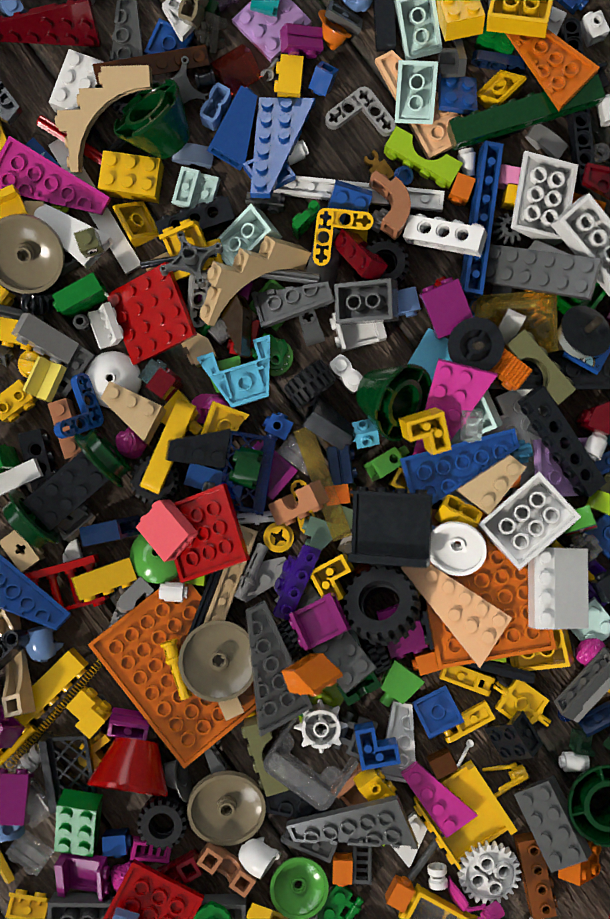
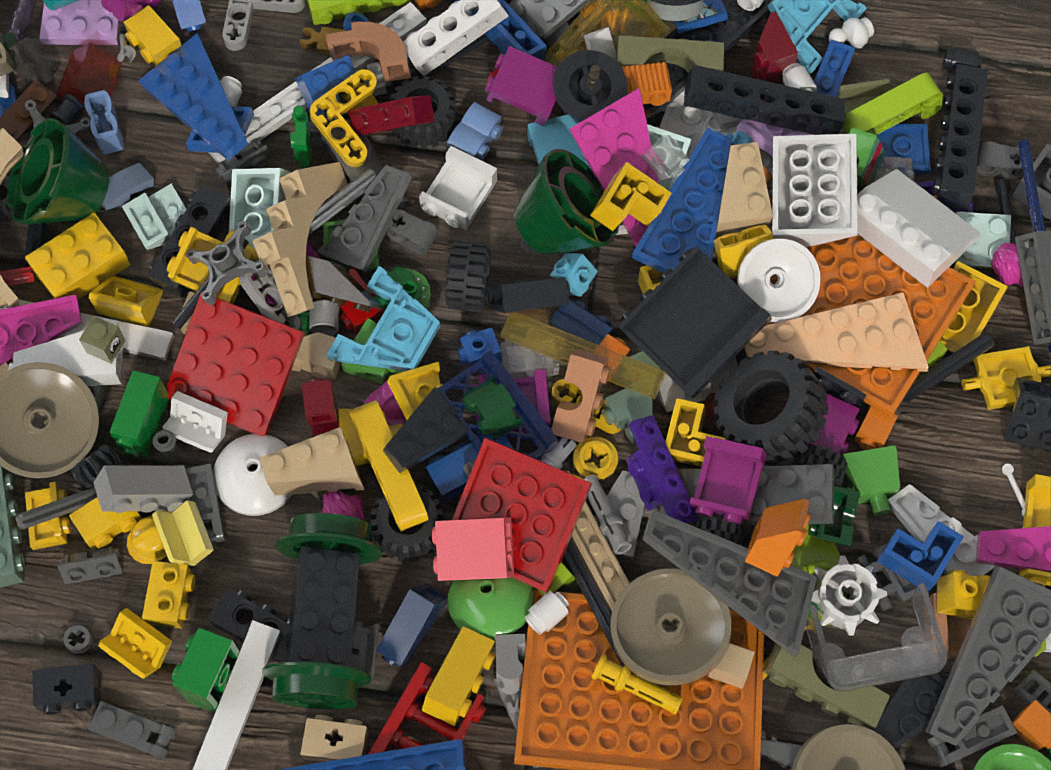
camera: 45 degrees left, 20 degrees down
(60, 411) = (251, 558): nougat arch -> none
(72, 551) = (391, 690): white tile -> none
(86, 415) = (265, 523): blue beam -> none
(150, 369) = (294, 423): clear light blue brick -> none
(234, 132) = (145, 127): blue slope -> none
(342, 369) = (502, 238): white brick -> none
(366, 302) = (443, 149): dark grey brick -> none
(381, 464) = (623, 275): bright green torso -> none
(437, 712) = (942, 464): blue plate -> none
(442, 763) = (1003, 510): reddish brown panel -> none
(468, 679) = (930, 406): yellow plate -> none
(473, 719) = (979, 448): yellow plate -> none

